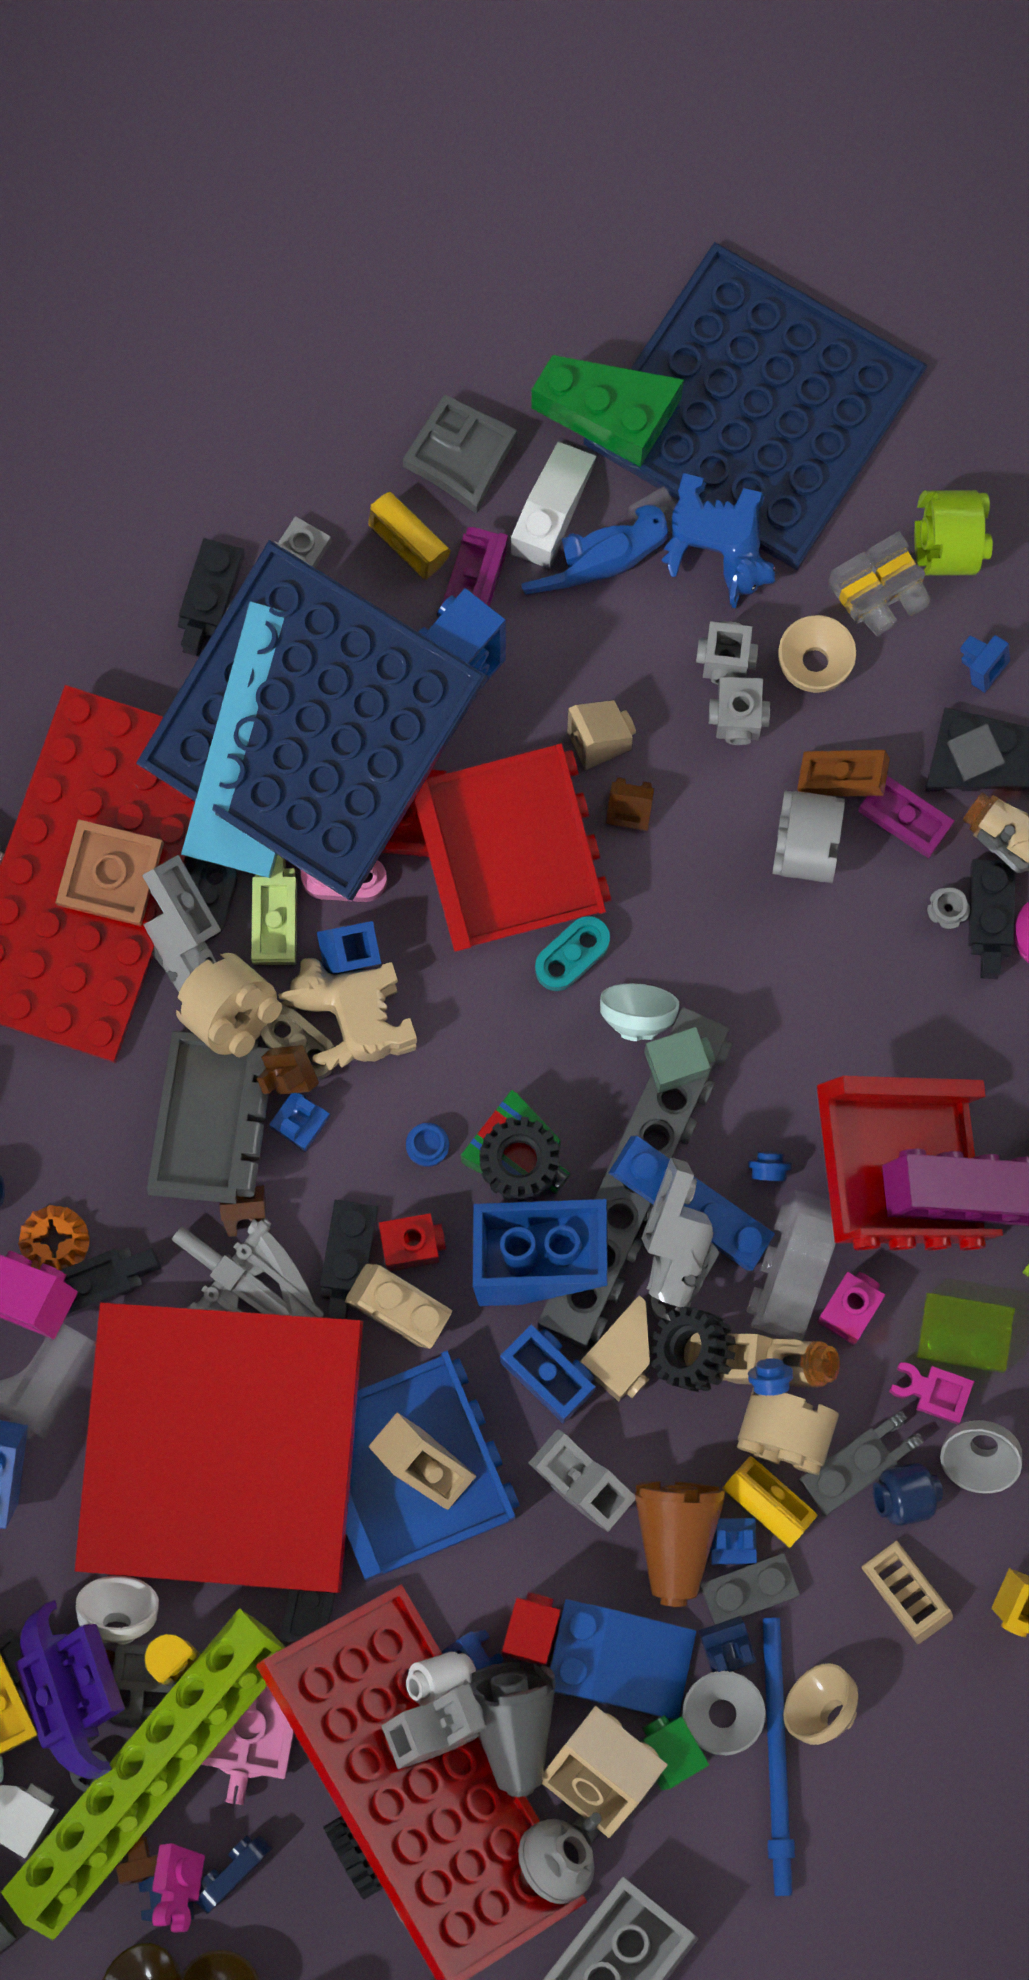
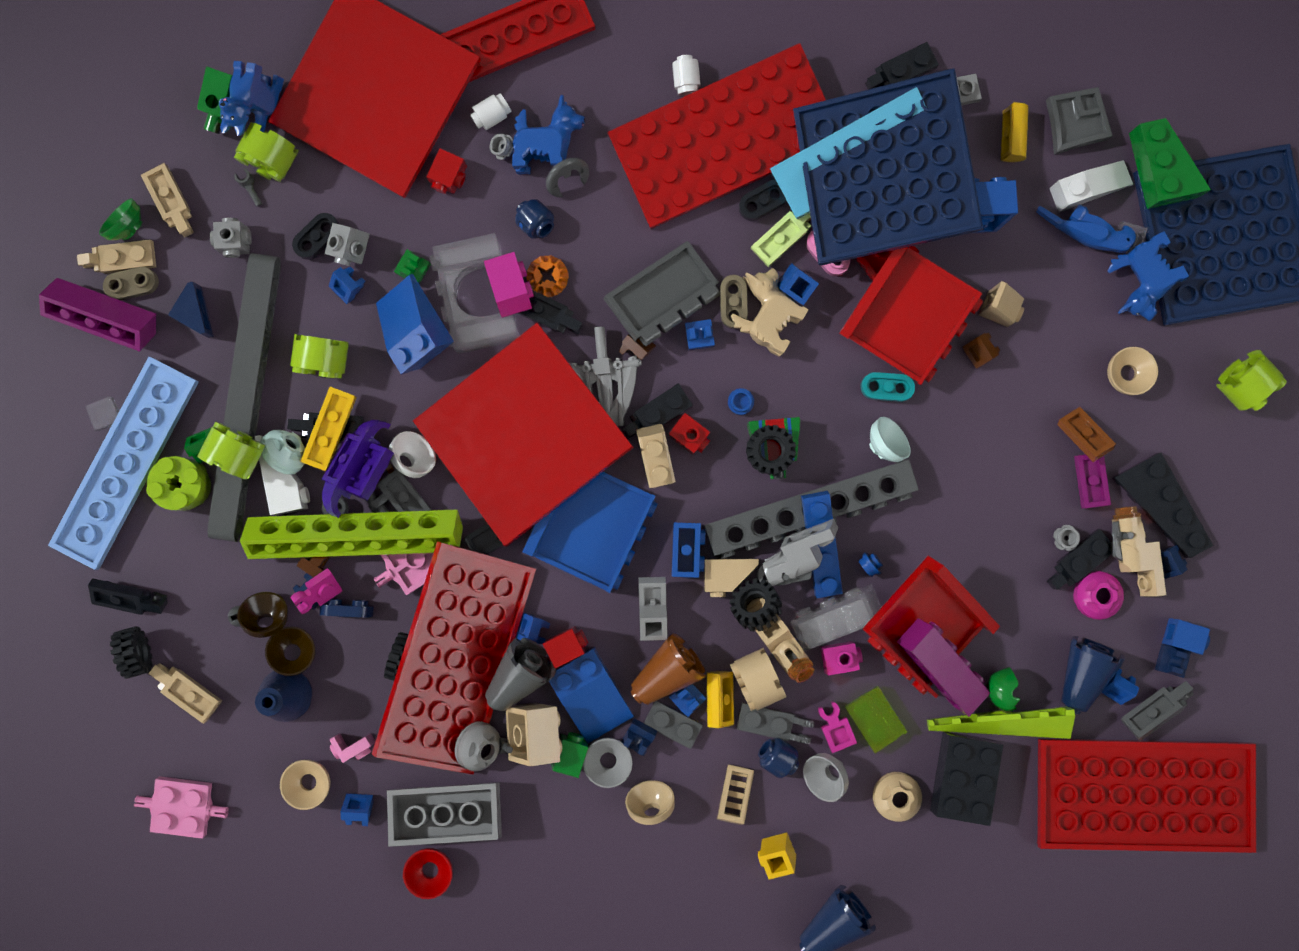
camera: 45 degrees right, 10 degrees up
(107, 872) = (732, 144): nougat plate -> none
(169, 1658) = (408, 499): yellow brick -> none
(183, 925) = (736, 201): light grey plate -> none
(227, 1005) = (720, 254): tan brick -> none
(287, 1071) = (715, 308): reddish brown tile -> none
(421, 1461) = (596, 529): tan slope -> none
(434, 1727) = (482, 644): light grey brick -> none
(437, 1676) = (508, 625): white brick -> none
(478, 564) = (1032, 177): magenta hinge -> none
(538, 1250) = (737, 496): blue slope -> none
(679, 1059) = (882, 480): sand green brick -> none
(727, 639) = (1095, 329): light grey brick -> none
(739, 710) = (1072, 359): light grey brick -> none
(770, 1377) = (774, 654): blue plate -> none
(781, 1847) = (573, 837): blue bar -> none
(808, 836) = (1042, 445): light grey brick -> none
(877, 580) = (1194, 367): clear hips -> none
(975, 752) = (1152, 486): clear tile -> none
(985, 660) = (1201, 450): blue tile -> none

